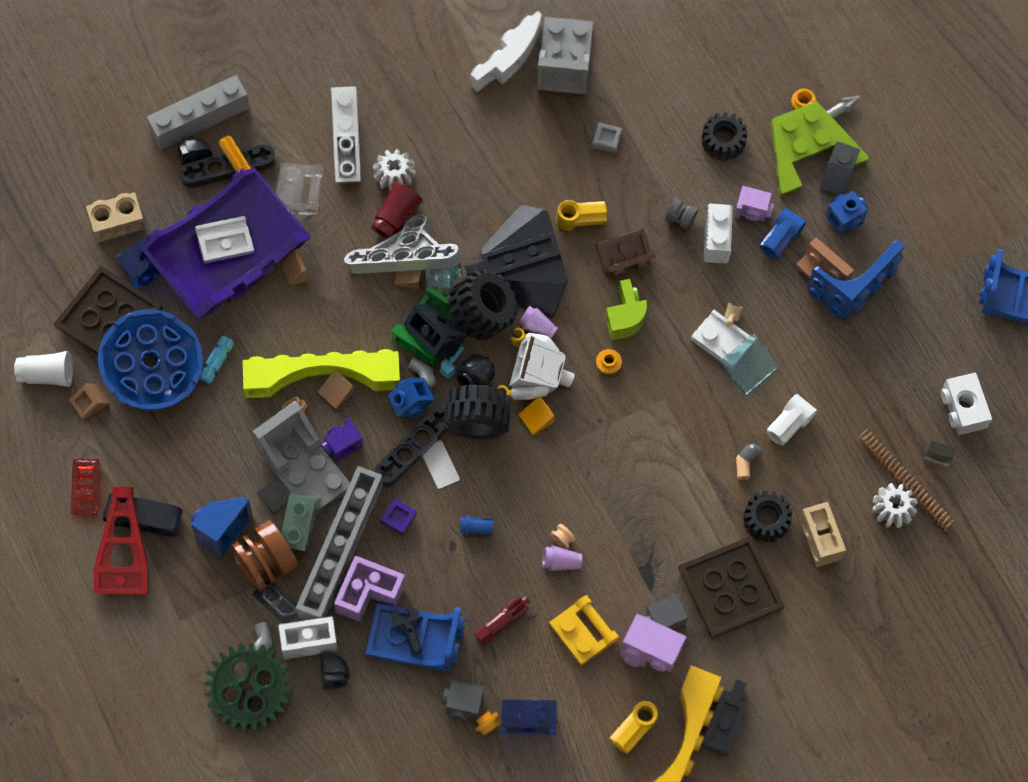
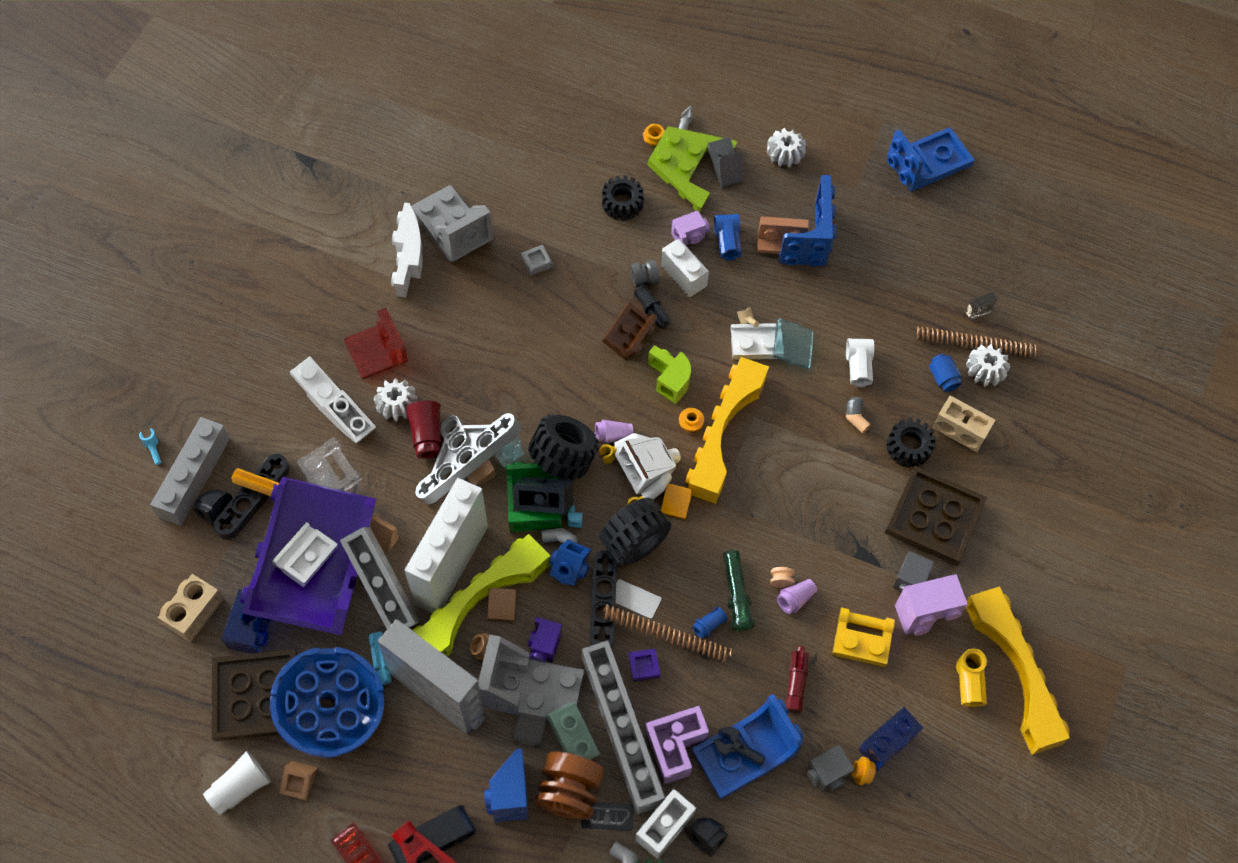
camera: 40 degrees left, 5 degrees down
(189, 69) = (151, 443): none -> medium azure hand
(230, 400) = (433, 677): none -> light grey brick
(258, 301) = (379, 578): none -> light grey brick
(325, 313) = (447, 546): none -> white brick
(416, 117) = (377, 347): none -> clear red bracket
(435, 507) = (664, 632): none -> medium nougat piece
(475, 371) = (600, 504): black head -> none
(513, 528) = (739, 601): none -> clear green pin
(527, 259) = (560, 384): black panel -> none
(583, 214) = (572, 327): yellow piece -> none
(663, 246) = (652, 306): none -> black axle
(673, 368) = (744, 388): none -> yellow arch
(726, 720) = (1028, 612): black hinge -> none
(847, 212) = (760, 187): blue brick -> none
(853, 484) = (945, 372): none -> blue brick
(899, 189) = (786, 148): none -> white gear
(969, 390) = (976, 258): white brick -> none

